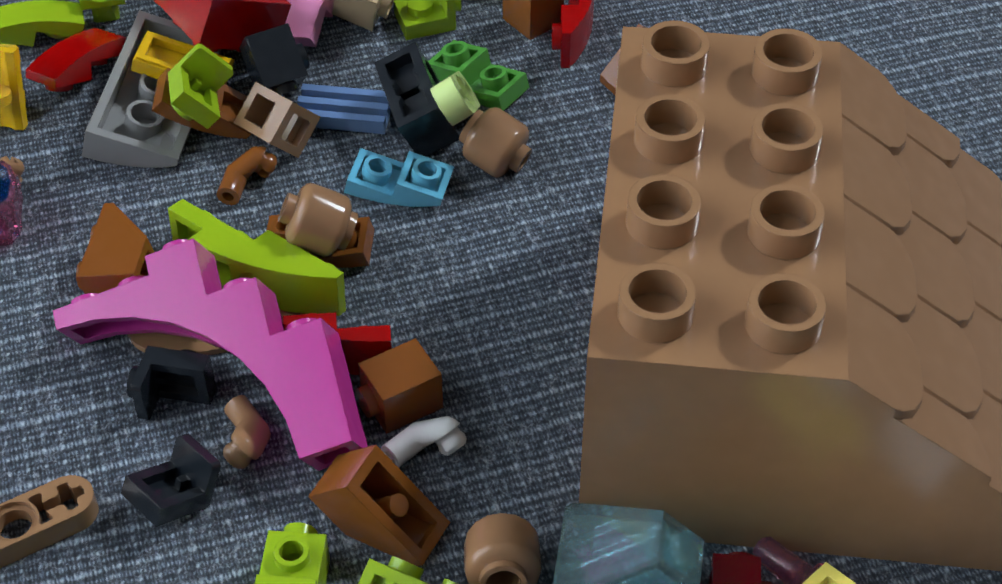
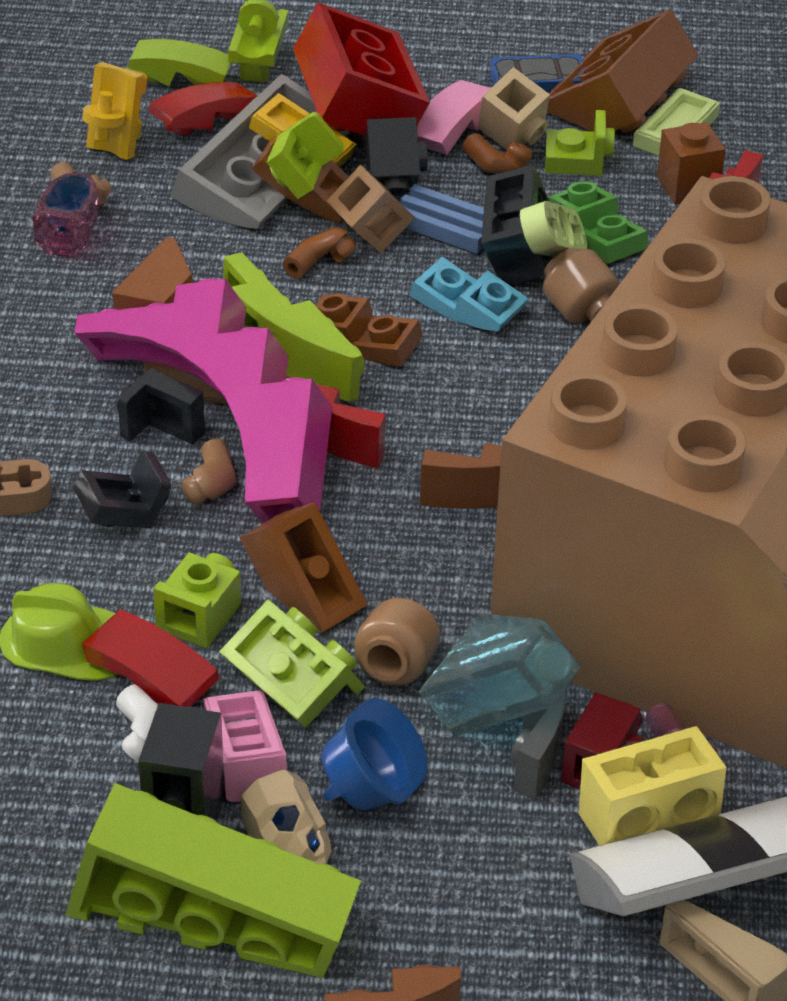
camera: 20 degrees right, 5 degrees down
(318, 219) = (360, 302): medium nougat head -> none
(359, 41) = (495, 161): none -> dark orange arm
(399, 386) = (373, 473): dark orange brick -> none
(420, 434) = (375, 523): white arm -> none
(482, 368) = (460, 480): none -> dark orange slope

